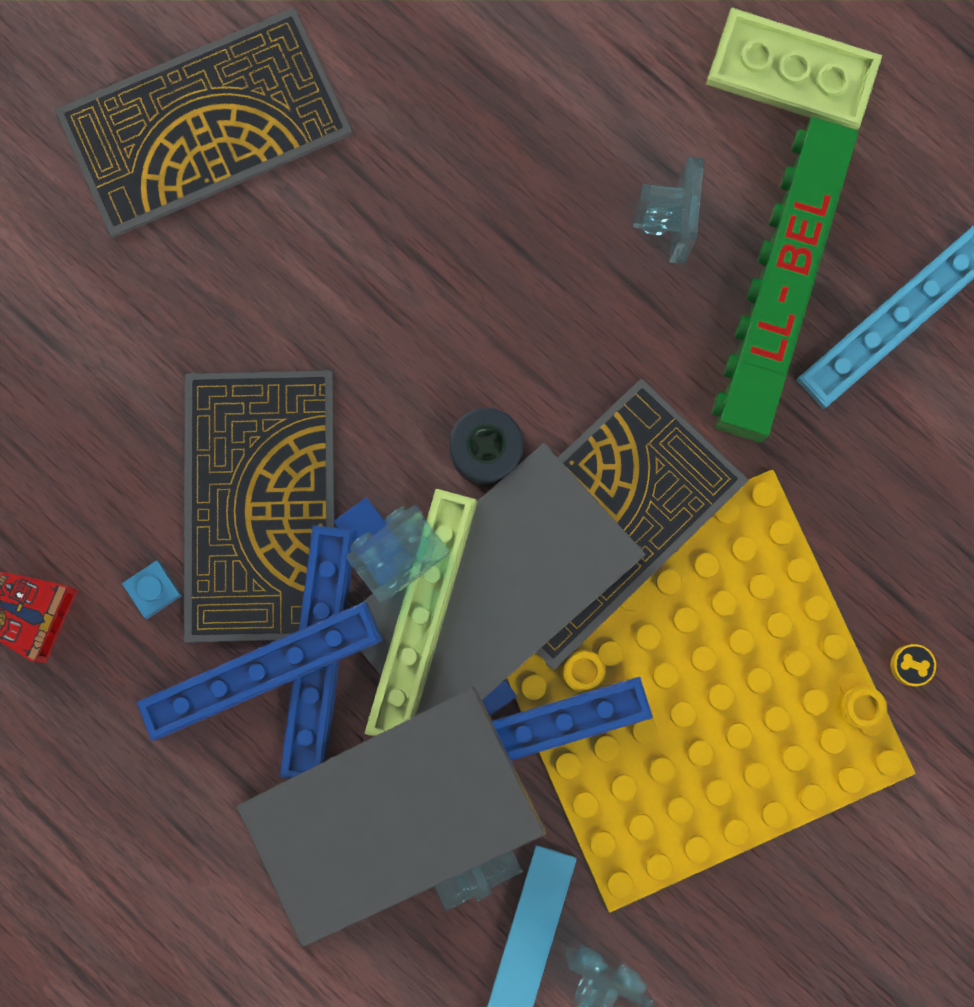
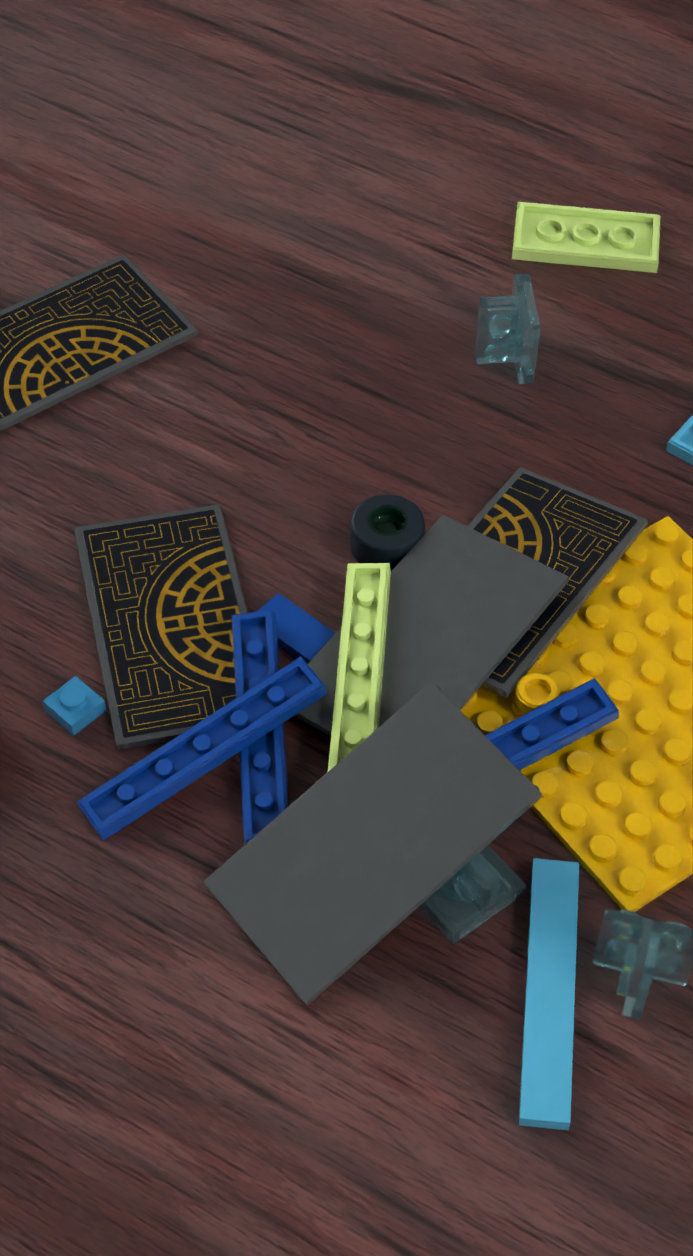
camera: 10 degrees left, 30 degrees down
(396, 553) = (321, 605): clear light blue bracket -> none
(785, 280) = (629, 378): green brick -> none

